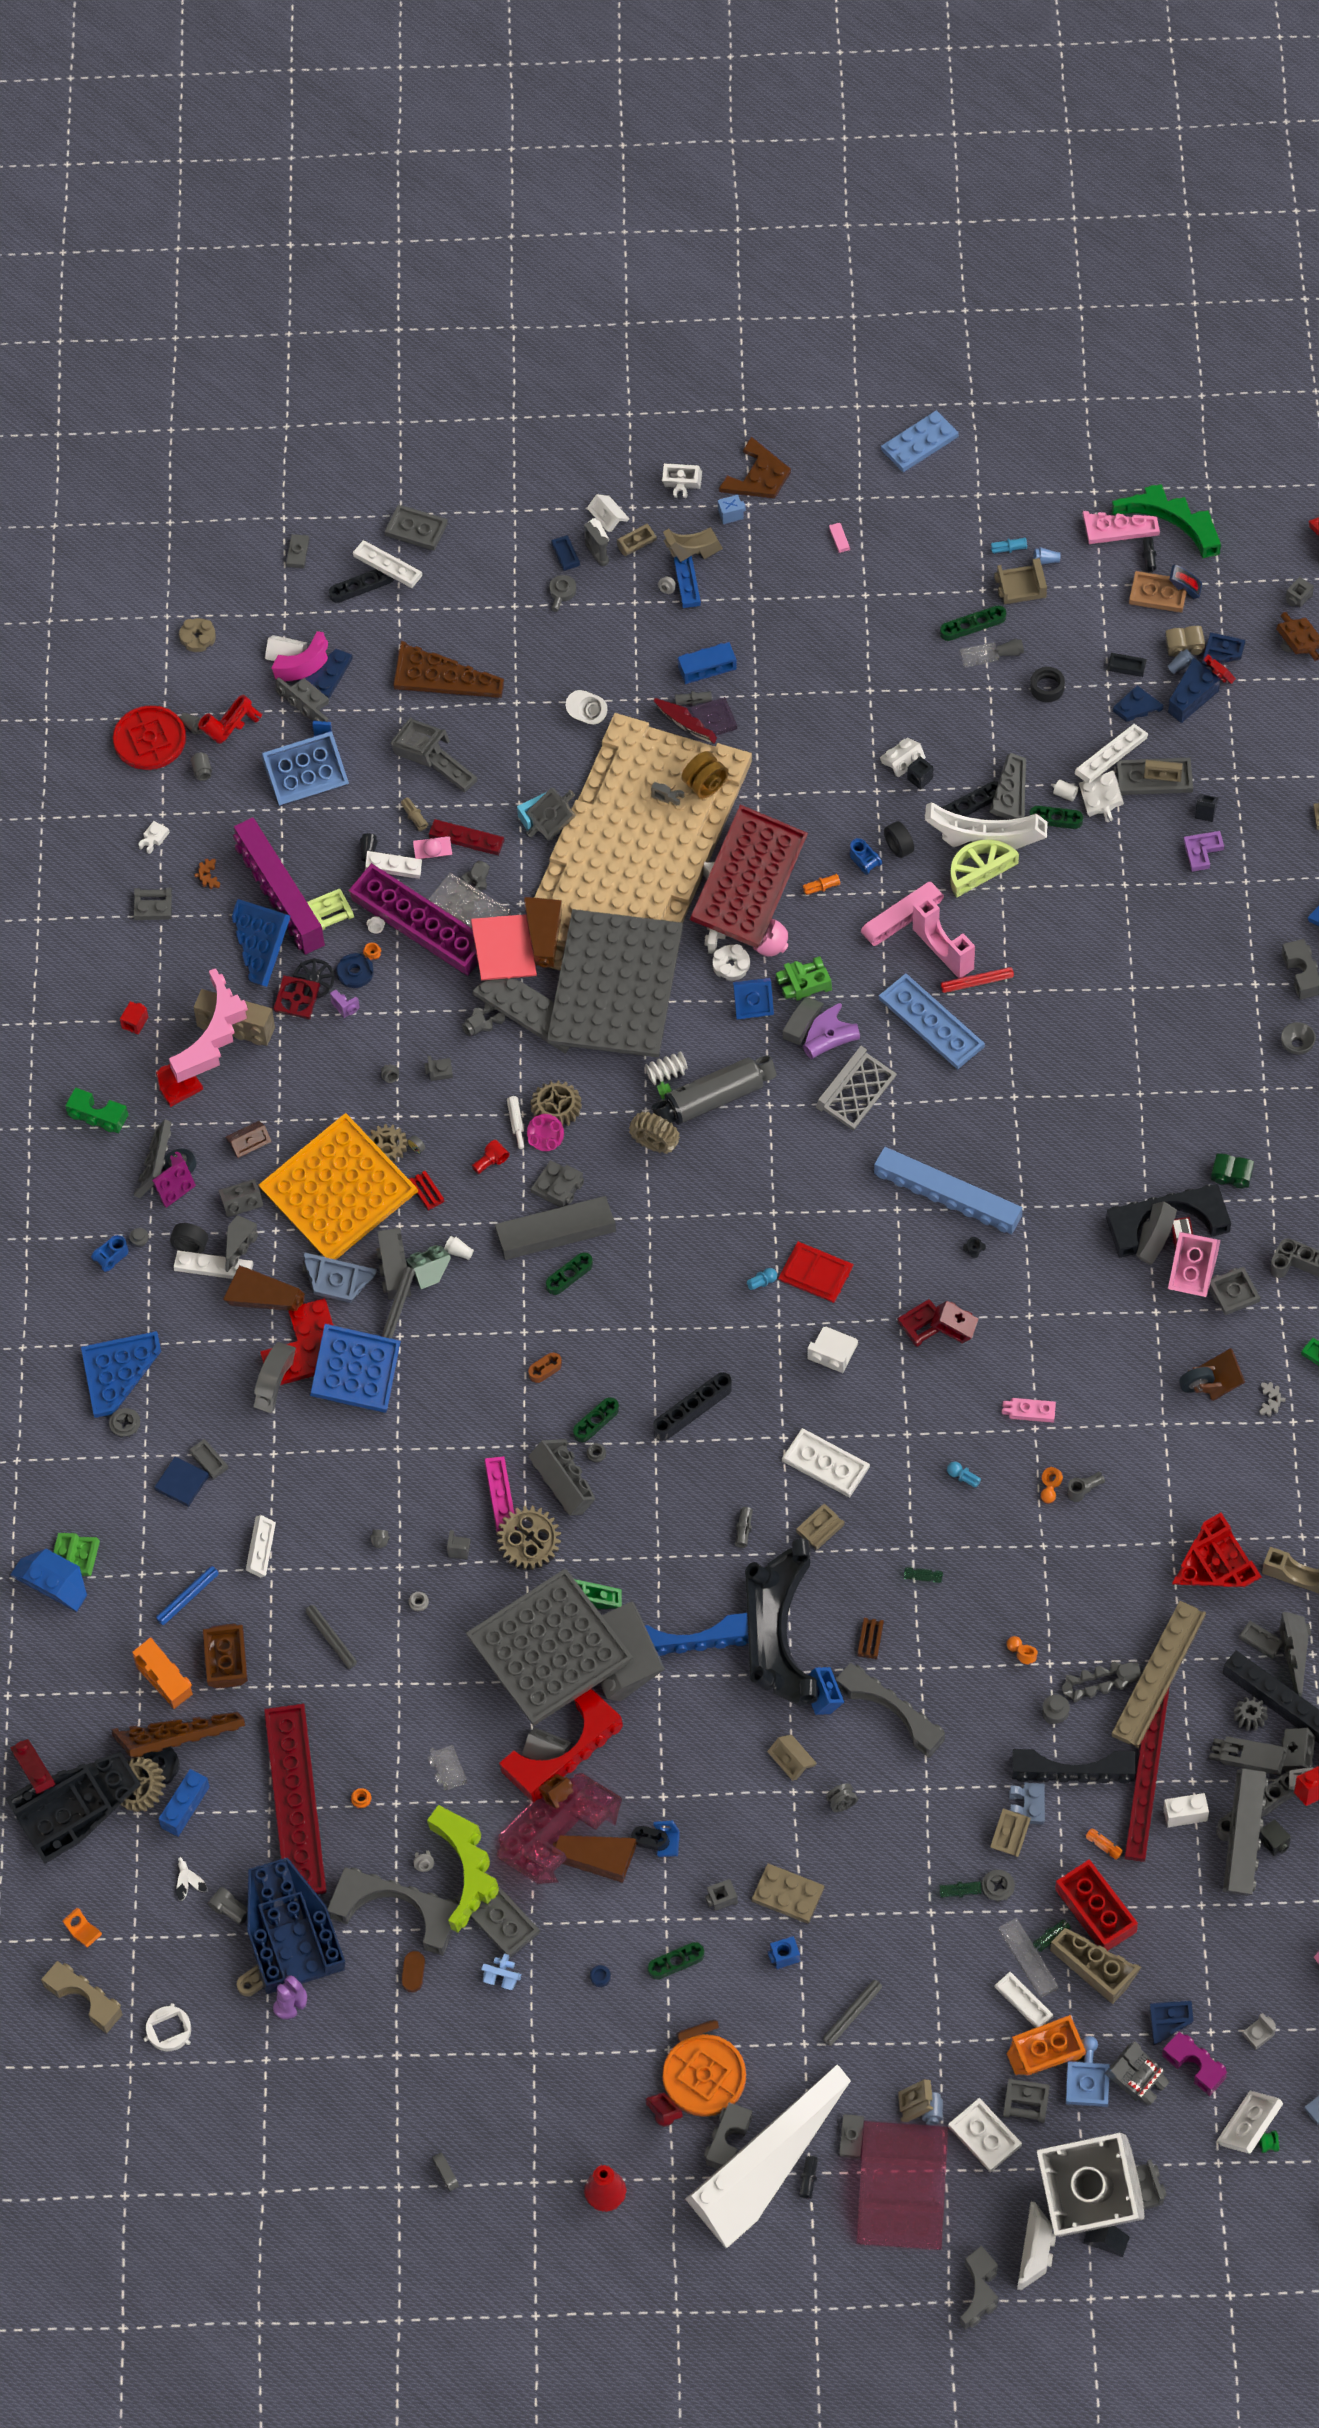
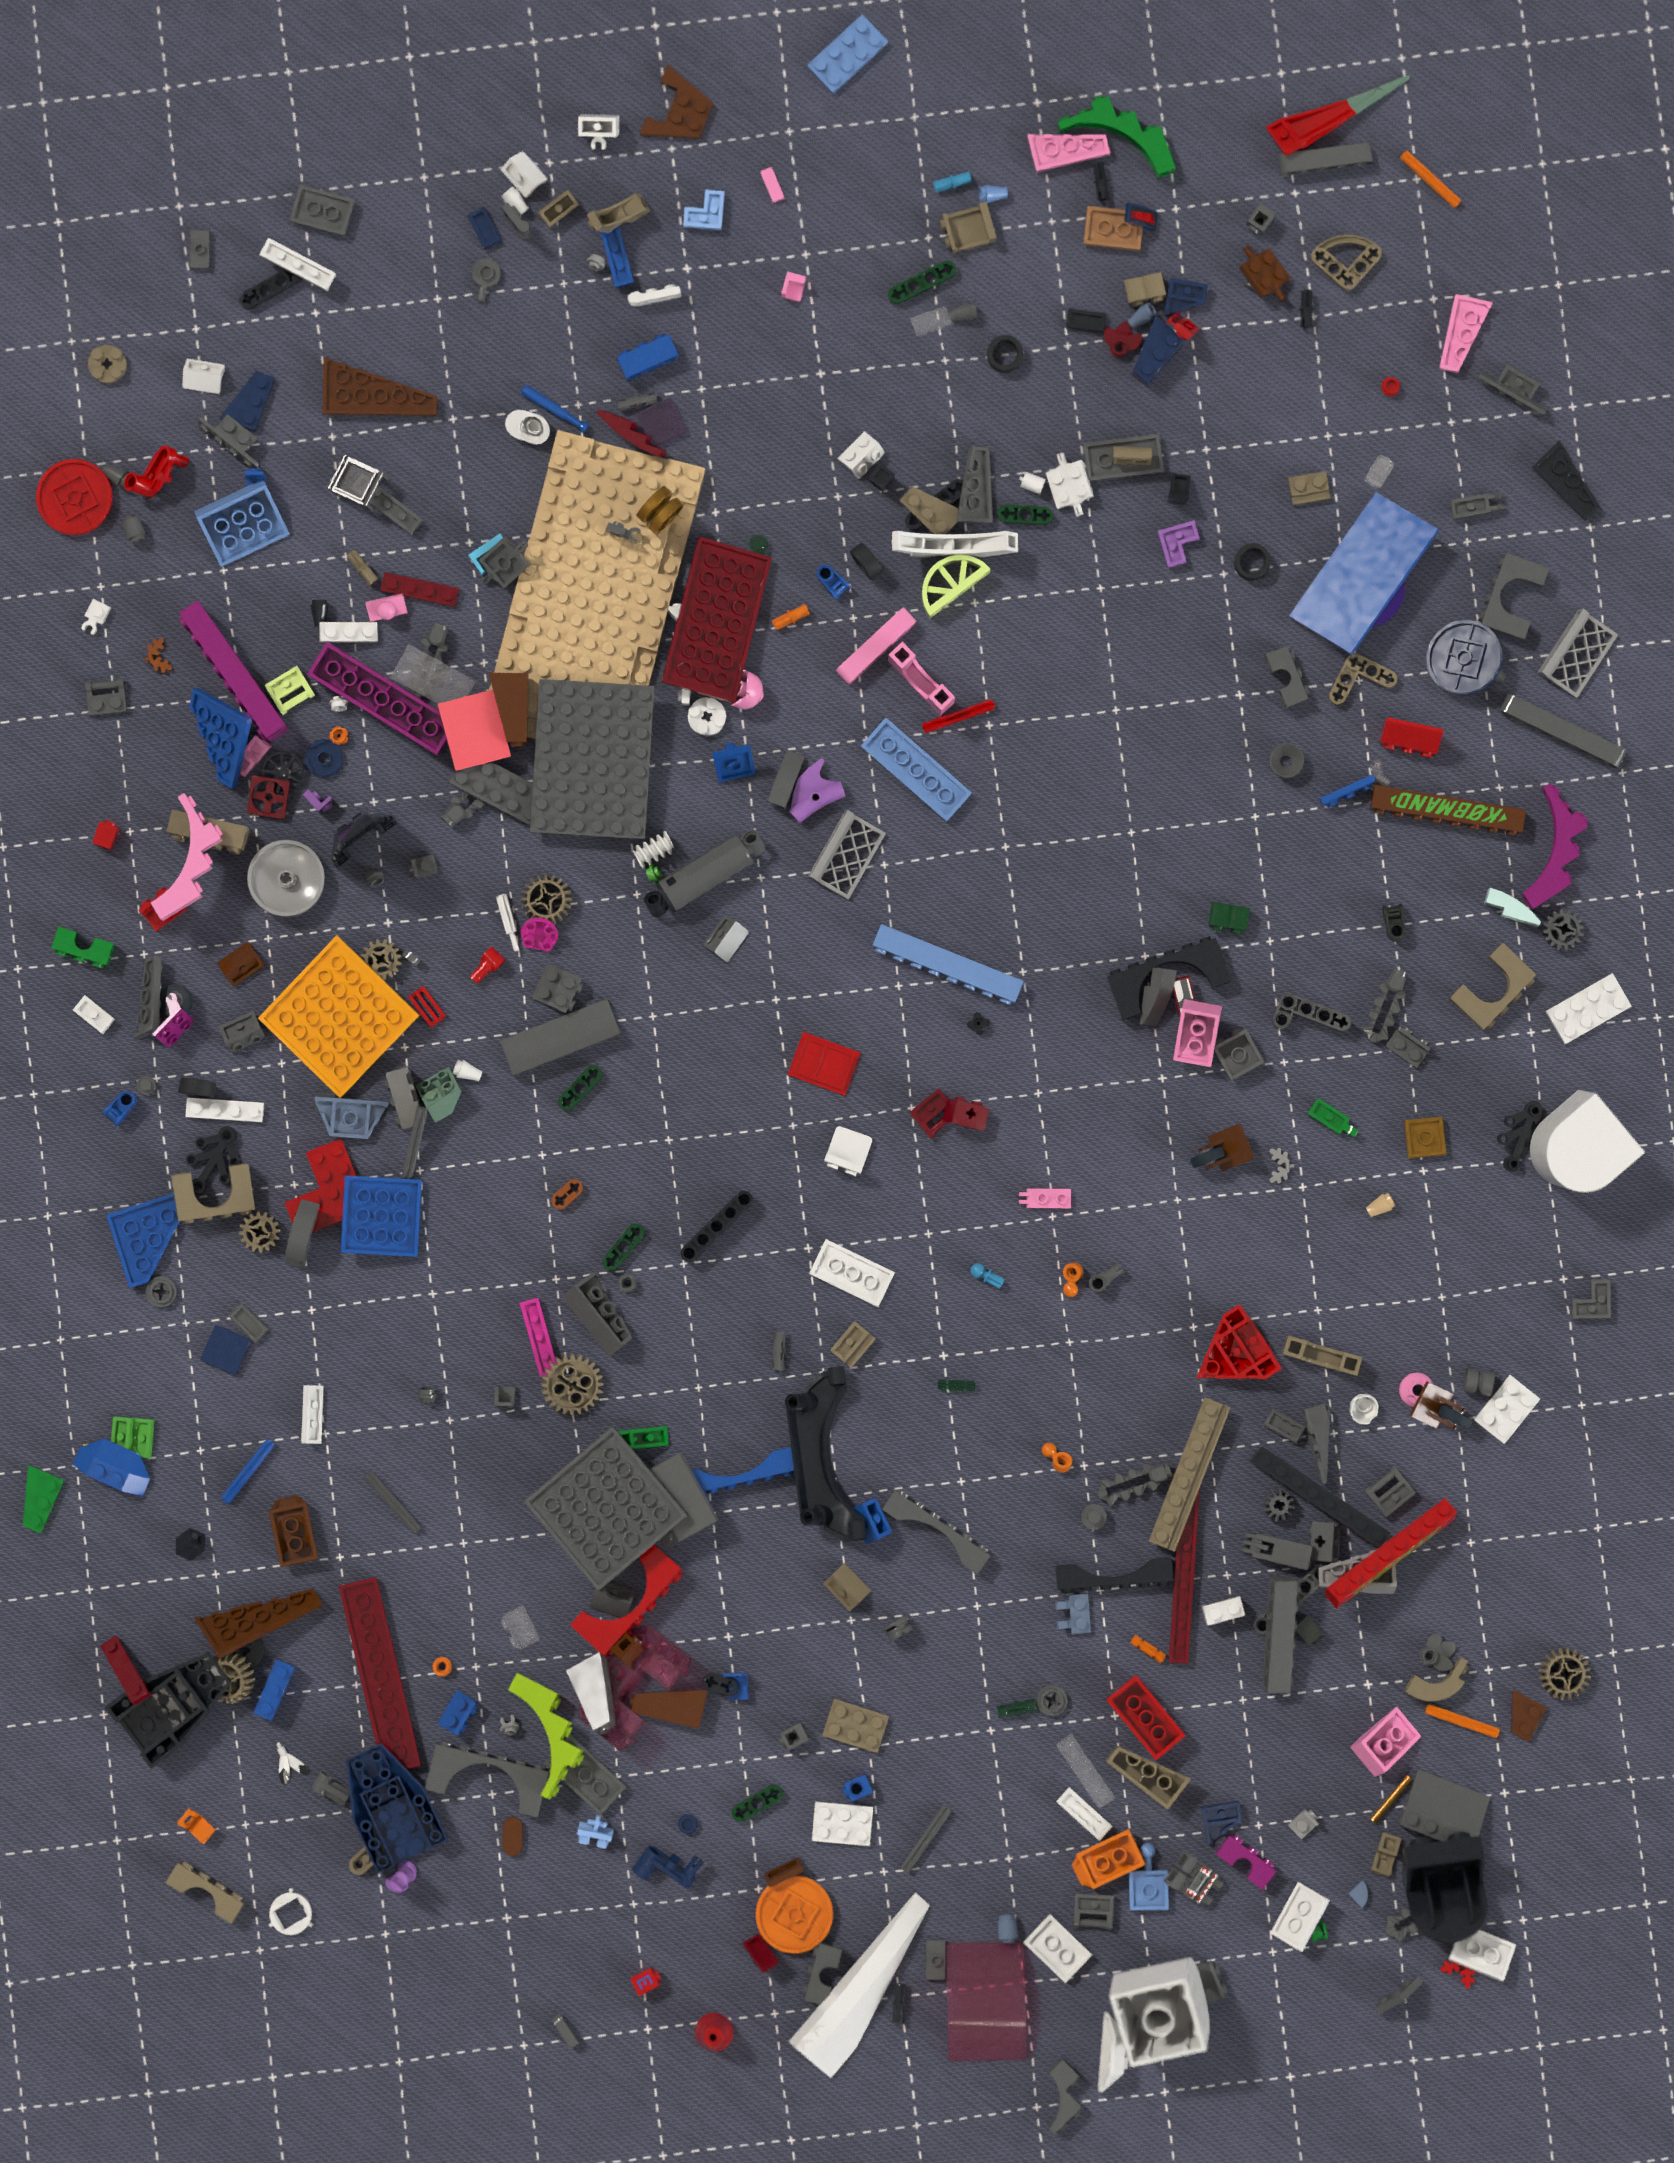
camera: 10 degrees left, 25 degrees up
(97, 1171) = (93, 1014): none -> white plate
(118, 1657) = (190, 1544): none -> black panel
(162, 1673) = (237, 1560): orange wedge -> none
(166, 1344) = (239, 1200): none -> dark tan arch
(196, 1306) = (214, 1156): none -> black plant
(231, 1374) = (262, 1223): none -> dark tan gear
(240, 1235) = (246, 1080): dark grey slope -> none
(261, 1291) = (279, 1141): reddish brown slope -> none
(287, 962) = (253, 754): none -> bright pink slope
(303, 1064) = (286, 878): none -> light grey dish
(304, 664) = (227, 395): dark pink arch -> none
(371, 1844) = (457, 1712): none -> blue bracket
(379, 1014) = (351, 832): none -> black wedge
(418, 1596) = (468, 1452): light grey plate -> none
(517, 1826) = (594, 1692): none -> slope
(537, 2127) = (646, 1980): none -> red brick
(558, 2002) = (653, 1858): none -> dark blue piece
(606, 694) = (552, 407): none -> blue piece
(654, 1132) = (649, 928): dark tan gear -> none
(719, 615) = (654, 295): none -> white hinge
(730, 1152) = (726, 938): none -> panel
(731, 509) = (654, 161): medium blue brick -> none
(762, 1279) = (777, 1072): dark azure axle -> none
(764, 1989) = (842, 1823): none -> white plate
(777, 556) = (708, 217): none -> light blue plate
(797, 821) = (758, 544): none -> clear green plate
(801, 983) = (779, 735): bright green hips -> none
(851, 616) = (793, 286): none -> bright pink panel
(873, 1623) = (910, 1473): reddish brown tile -> none
(915, 2100) = (991, 1925): dark tan plate -> none
(964, 801) = (930, 511): none -> dark tan wing
(1010, 1832) = (1059, 1648): dark tan plate -> none
(1049, 1935) = (1105, 1748): clear green pin -> none
(1111, 753) = (1077, 438): white plate -> none
(1136, 704) = (1099, 370): dark blue wing -> none
(1160, 680) = (1122, 337): none -> dark red plate
(1274, 858) = (1252, 547): none -> black tyre

